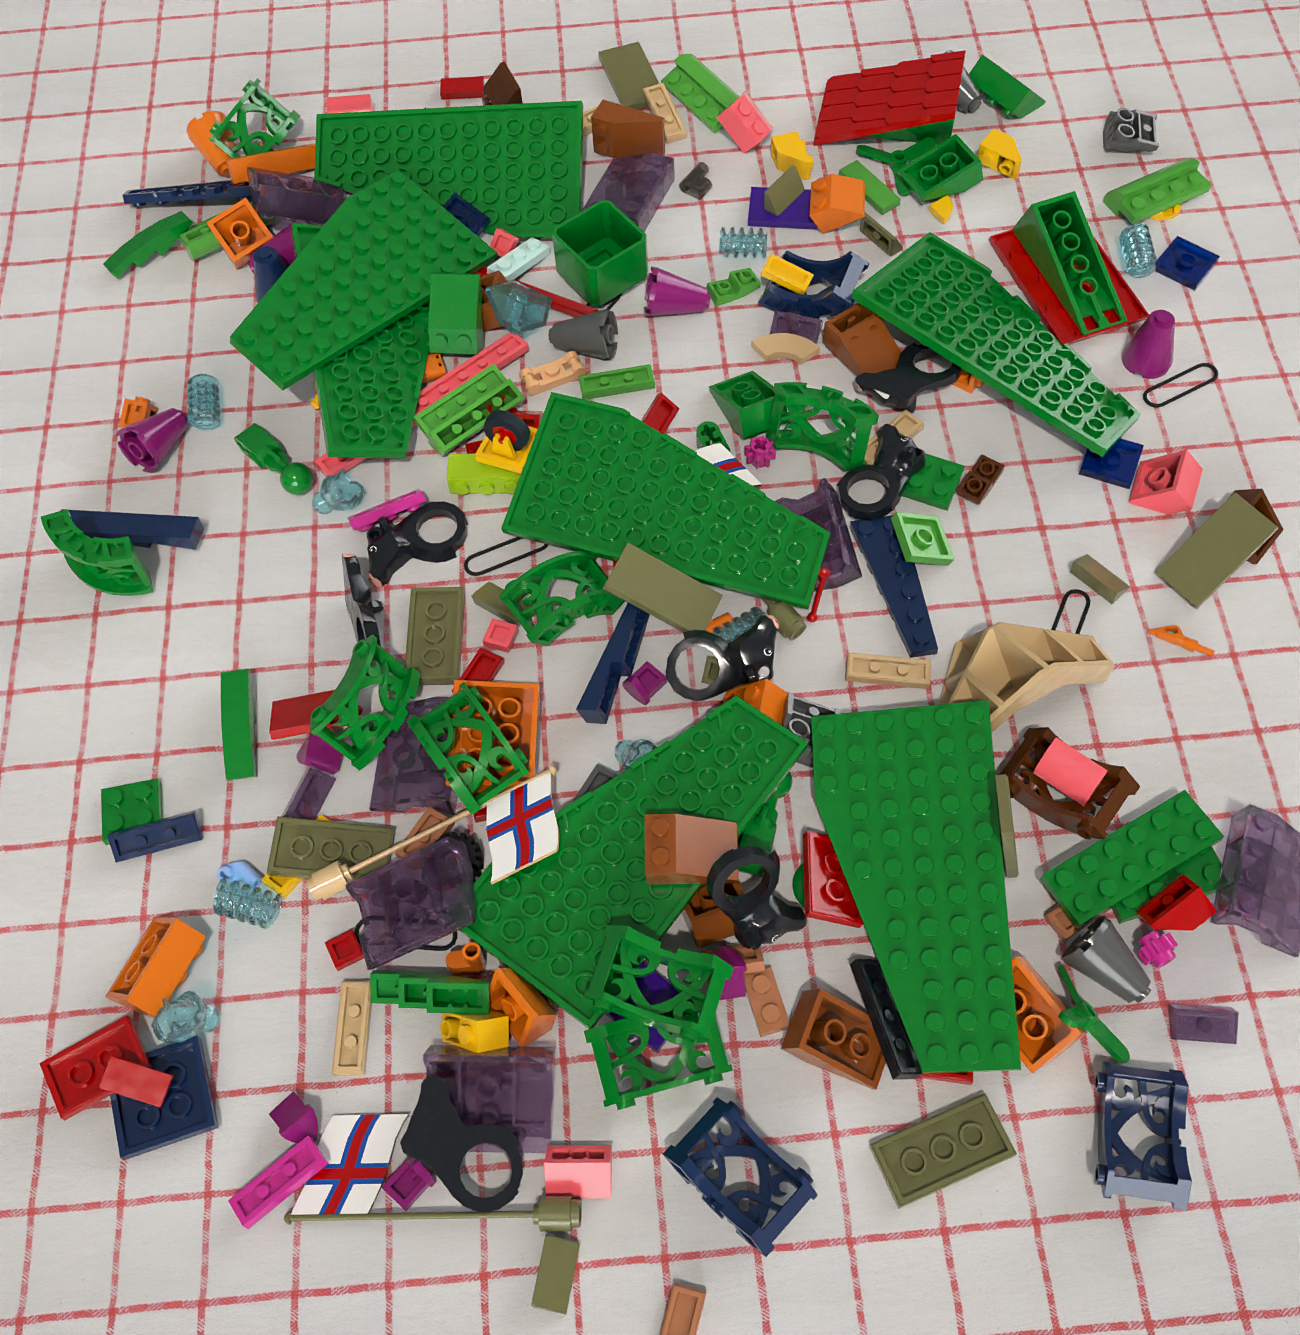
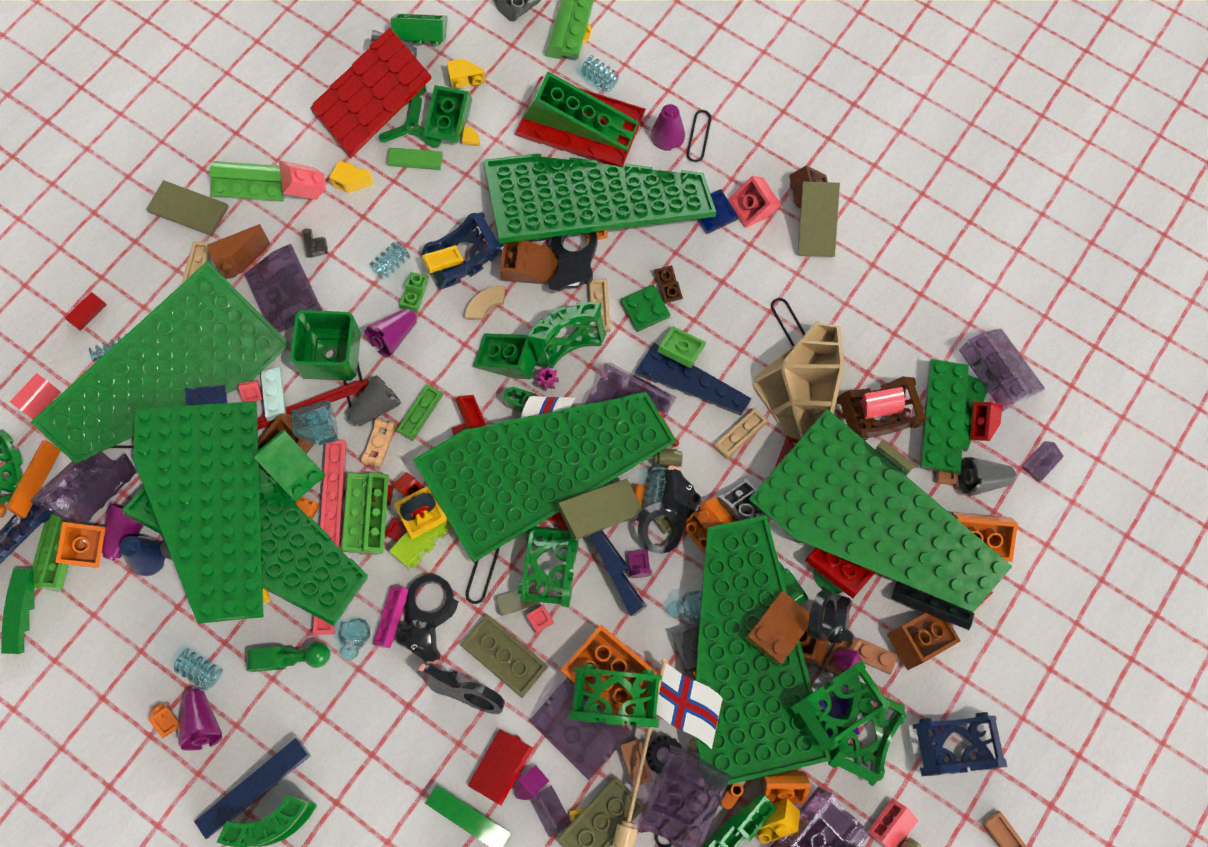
camera: 55 degrees left, 10 degrees up
(367, 742) = (530, 757): green fence -> none
(483, 667) = (553, 651): red tile -> none
(501, 88) = (130, 296): reddish brown slope -> none
(662, 105) = (239, 214): tan tile -> none
(783, 191) = (377, 207): olive slope -> none
(794, 216) = (383, 215): dark purple tile -> none
(796, 324) = (476, 284): clear purple slope -> none
(836, 201) = (414, 186): orange slope -> none
(880, 235) = (456, 185): olive slope -> none
(894, 465) = (622, 318): black animal -> none
(942, 1150) = (1013, 636): olive tile -> none
(1085, 1016) = (1007, 513): green piece -> none
(1099, 578) = (778, 284): olive slope -> none
(1157, 949) = (996, 447): dark pink gear -> none
(1167, 1182) = (1077, 514): dark blue fence -> none
(1179, 639) = (845, 280): orange hand -> none
(1186, 263) = (627, 58): clear blue tile -> none

